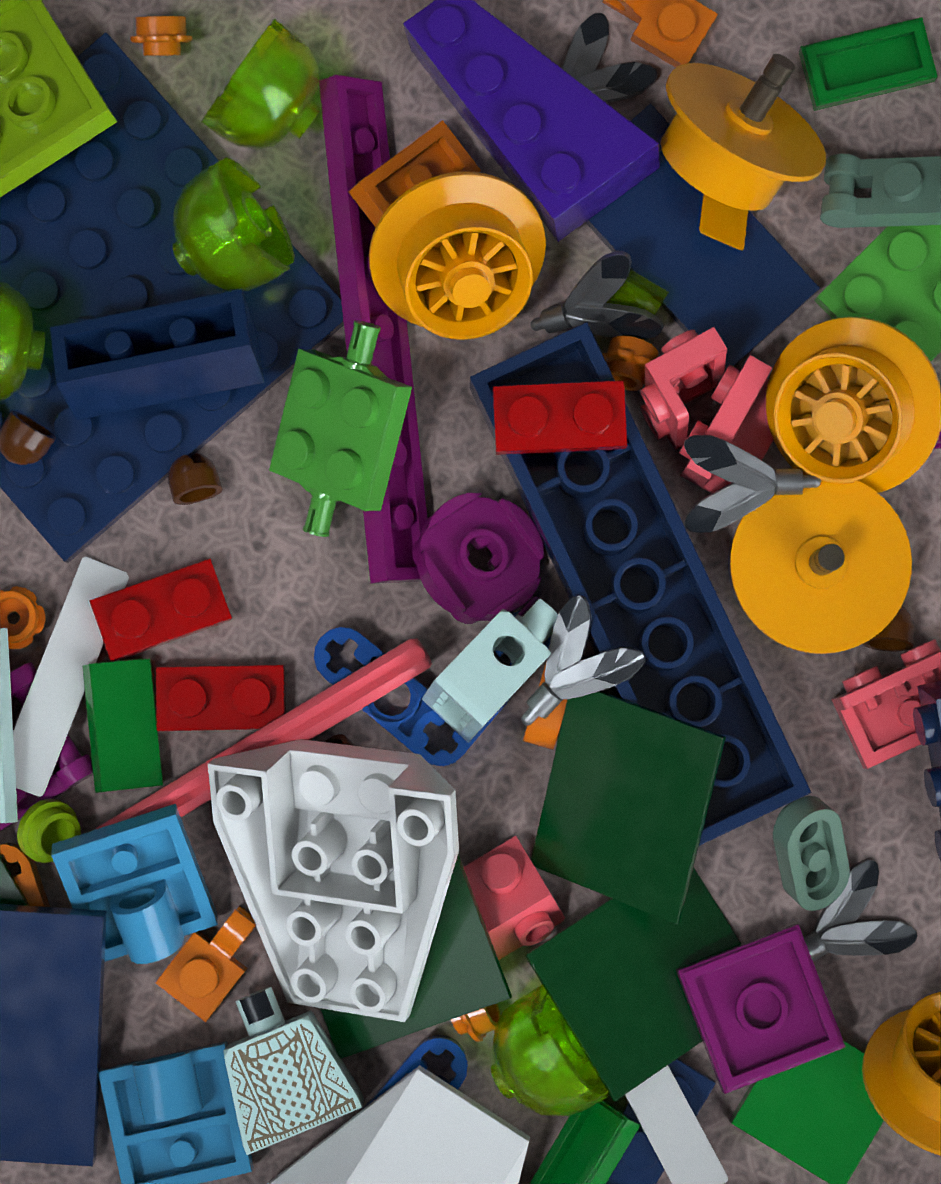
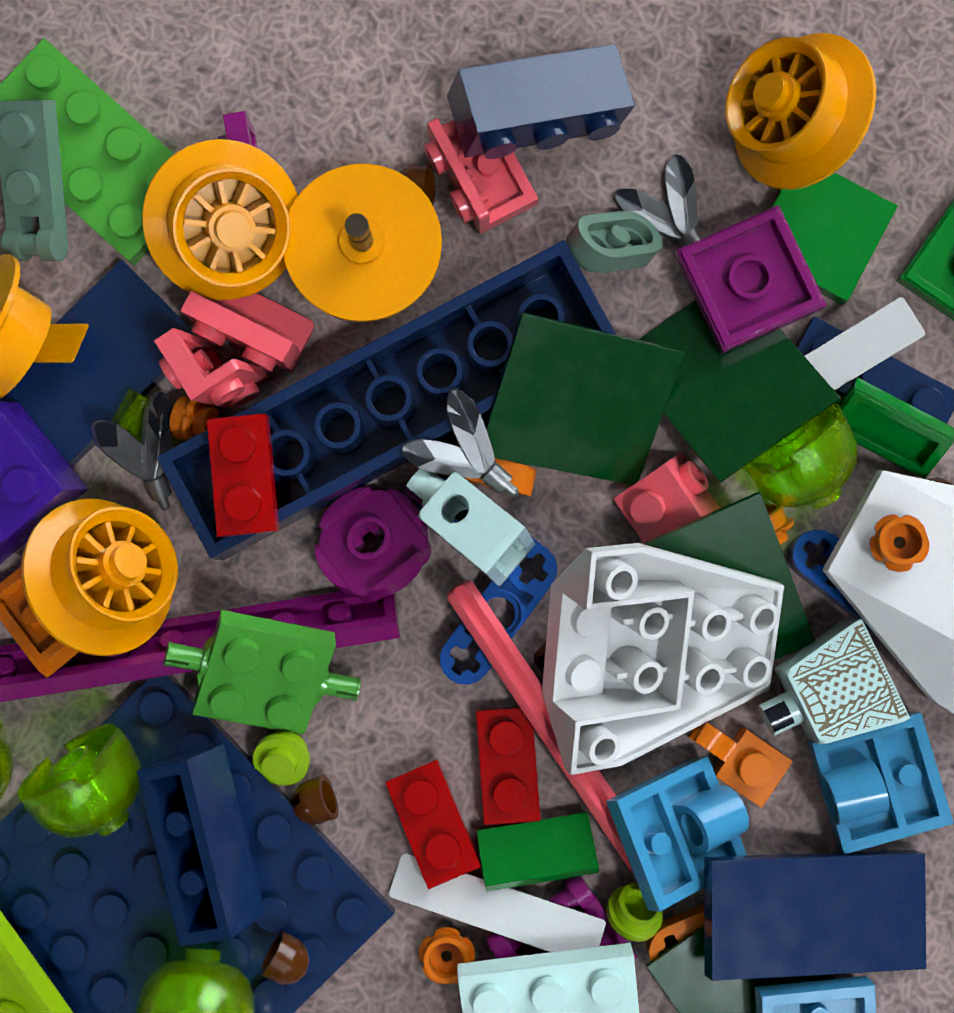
camera: 90 degrees left, 0 degrees up
(244, 445) = (282, 758): none -> lime plate
(456, 1165) = (915, 542): none -> orange plate
(750, 487) = (295, 303): flat silver piece -> none

